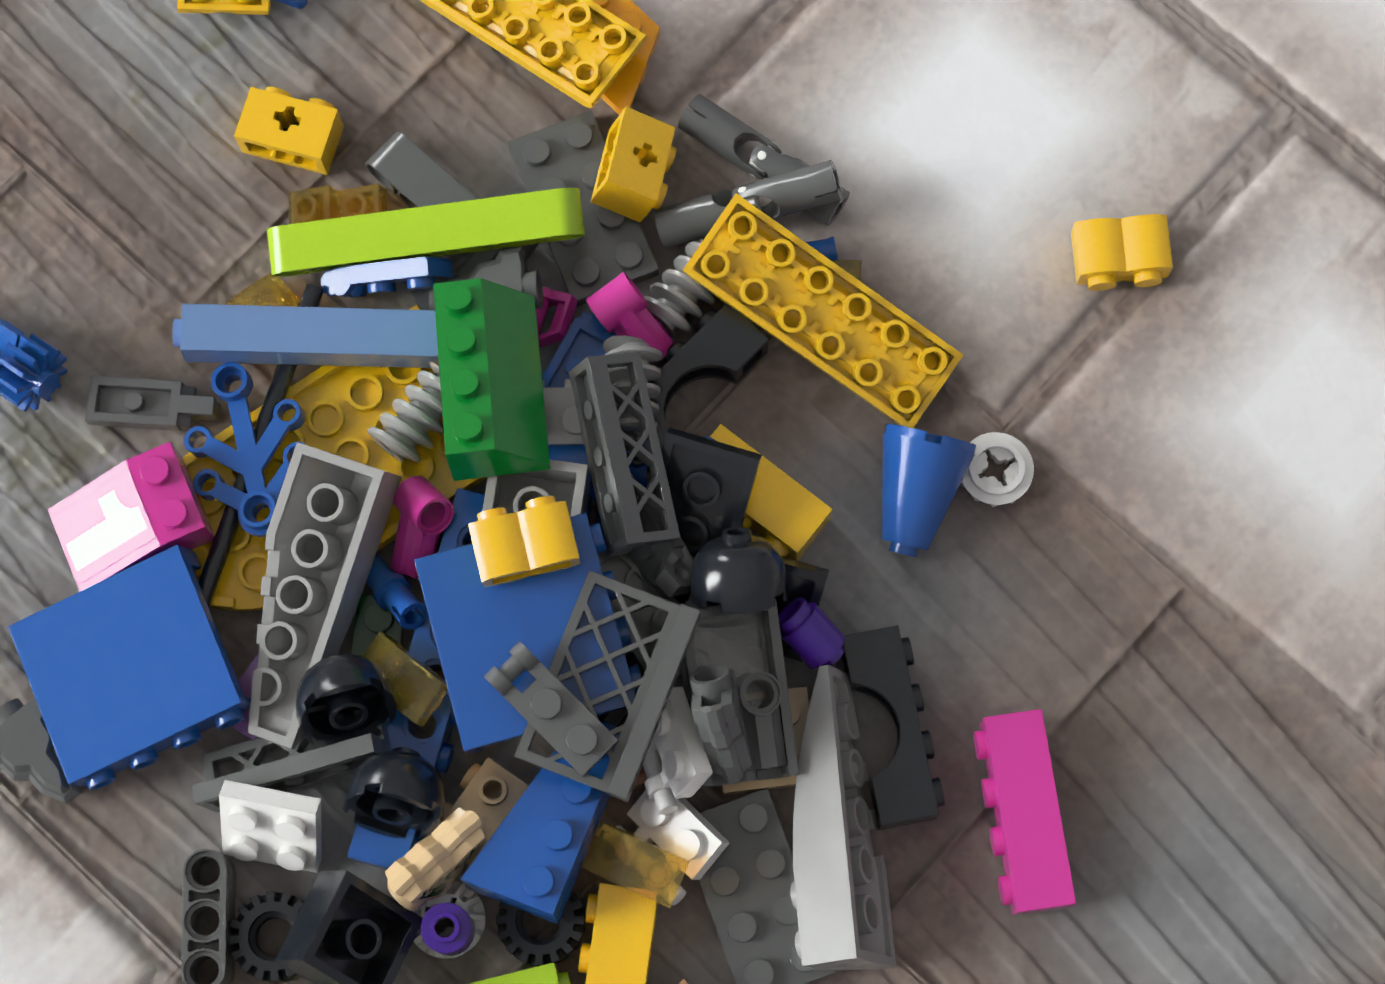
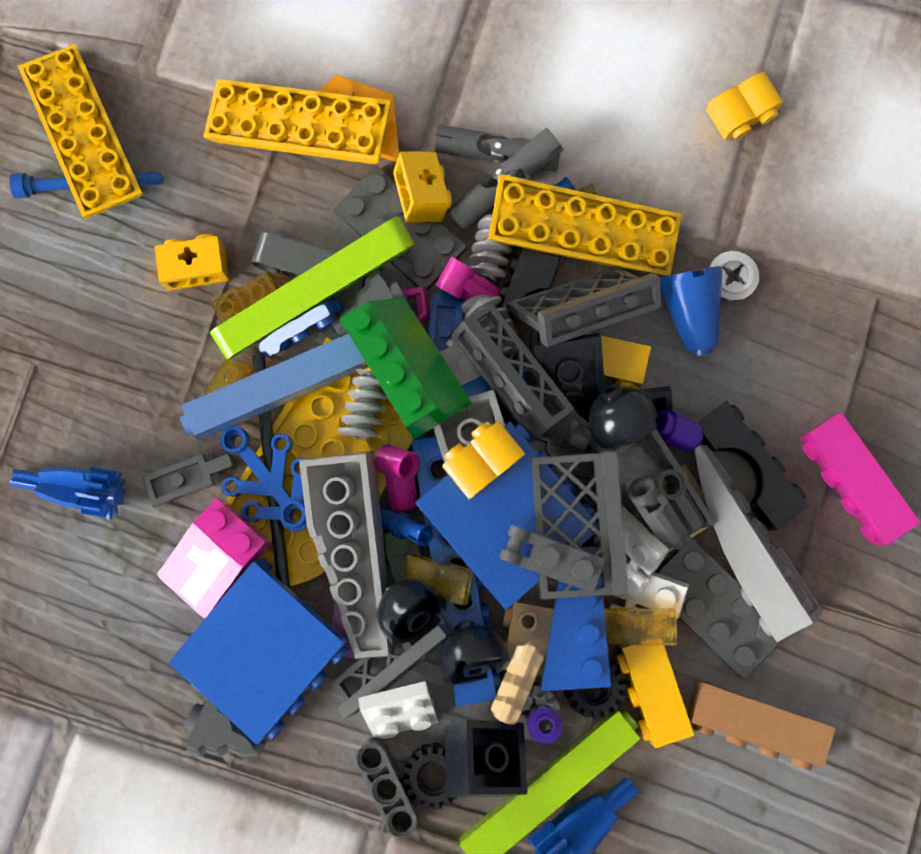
camera: 20 degrees left, 5 degrees up
(770, 413) = (587, 304): none -> dark grey fence

